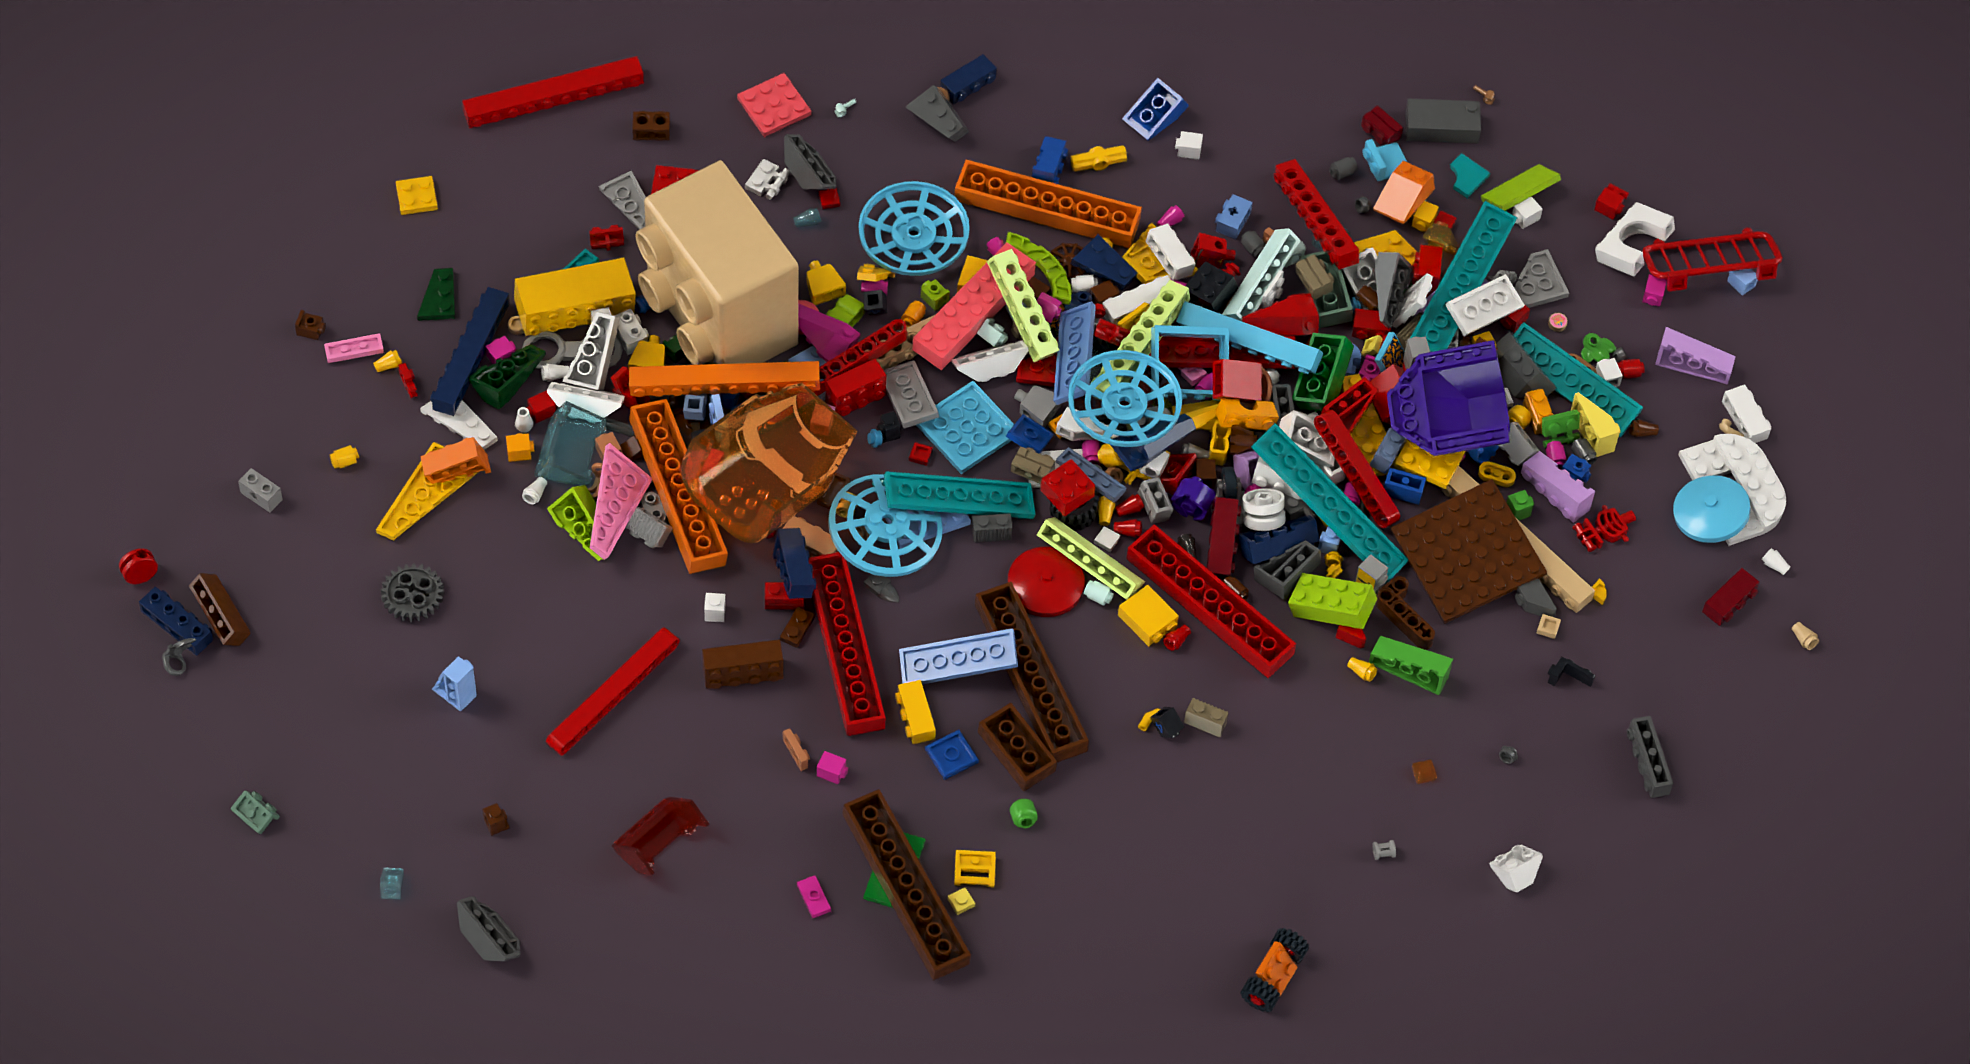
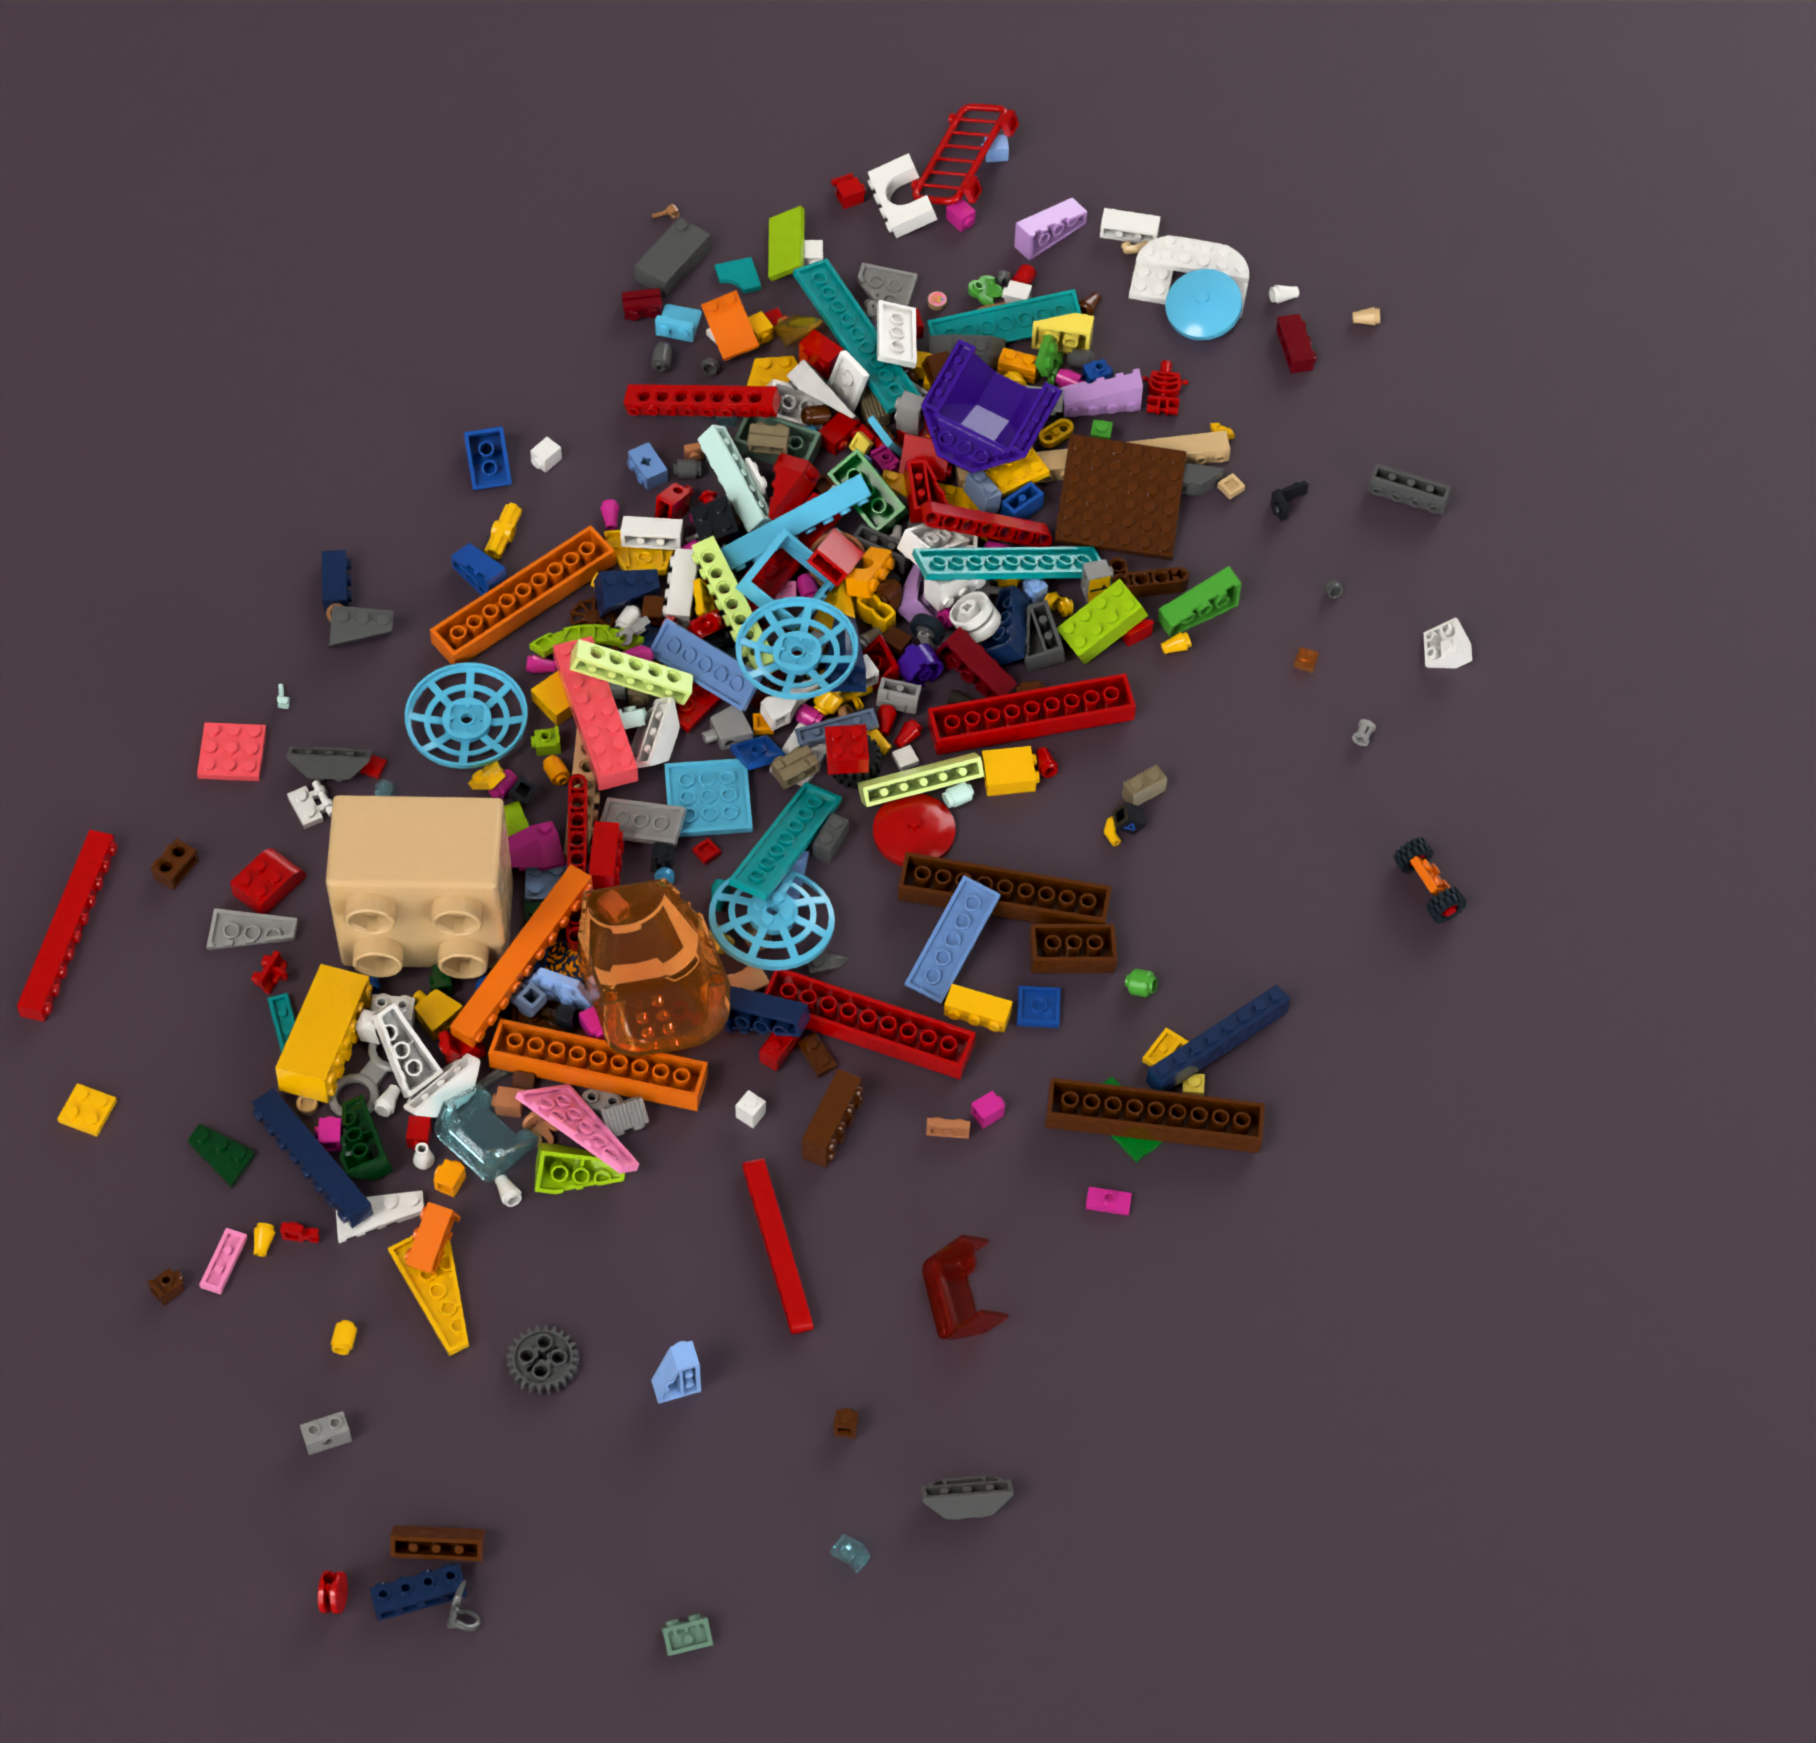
camera: 55 degrees left, 0 degrees up
(1007, 893) = (1218, 1040): none -> dark blue brick
(1071, 289) = (636, 627): none -> light grey plate

